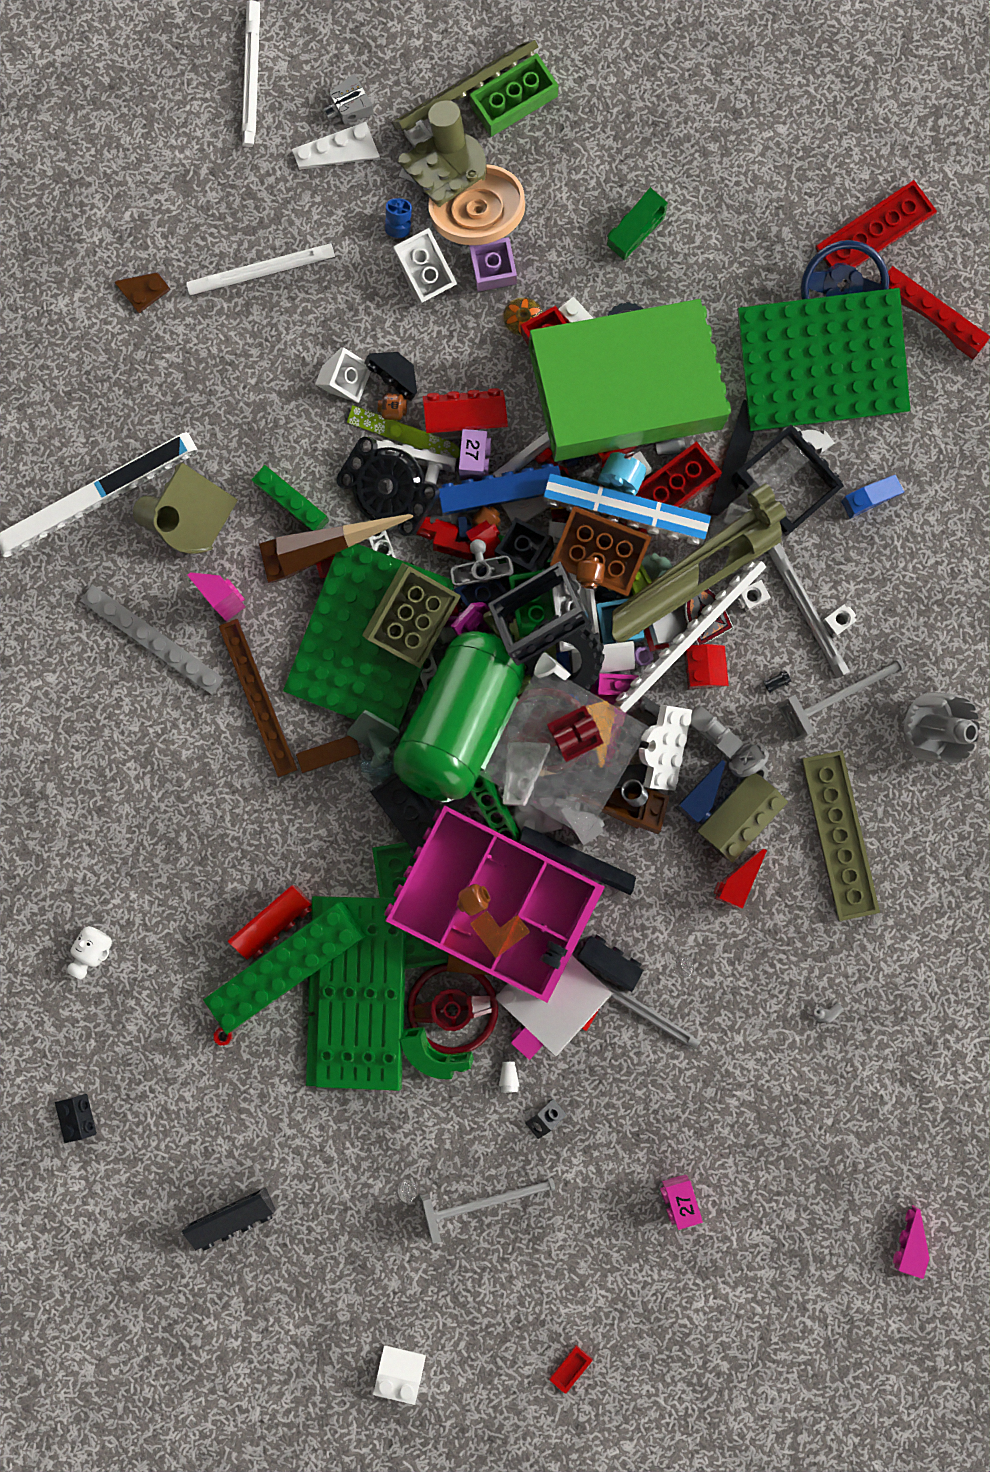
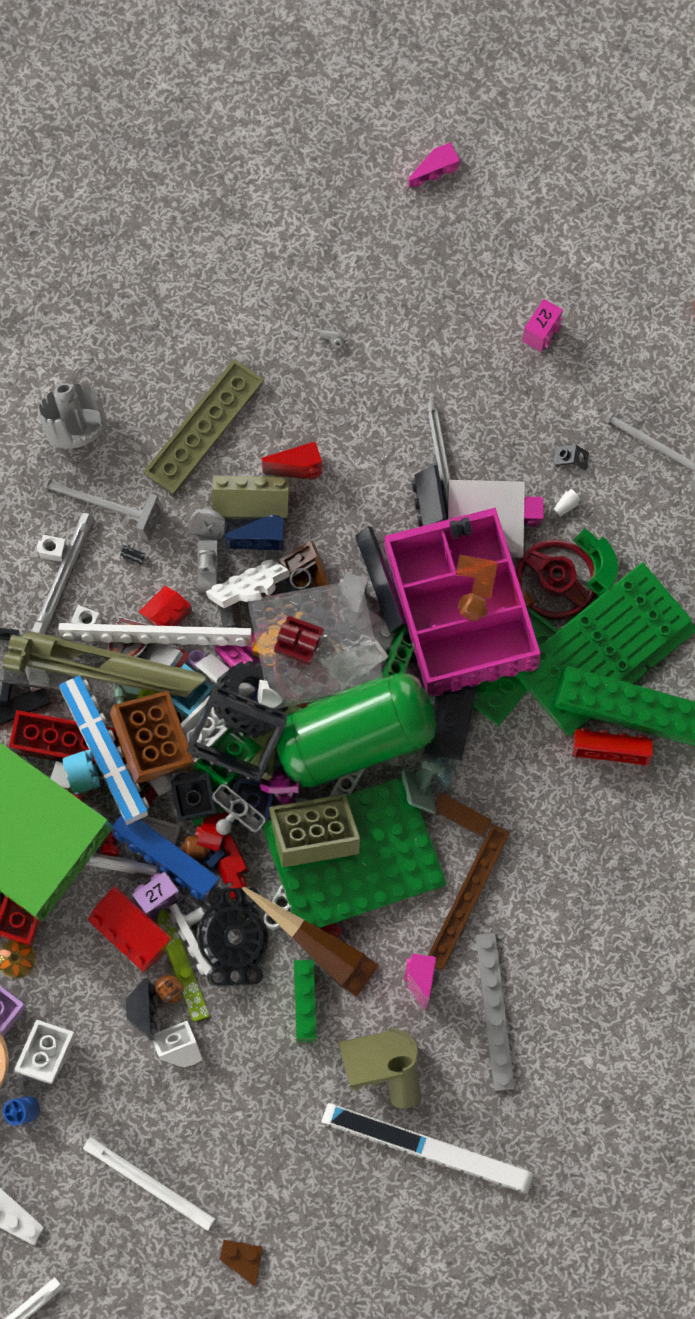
camera: 135 degrees left, 10 degrees down
(590, 573) = (176, 725): dark orange head -> none

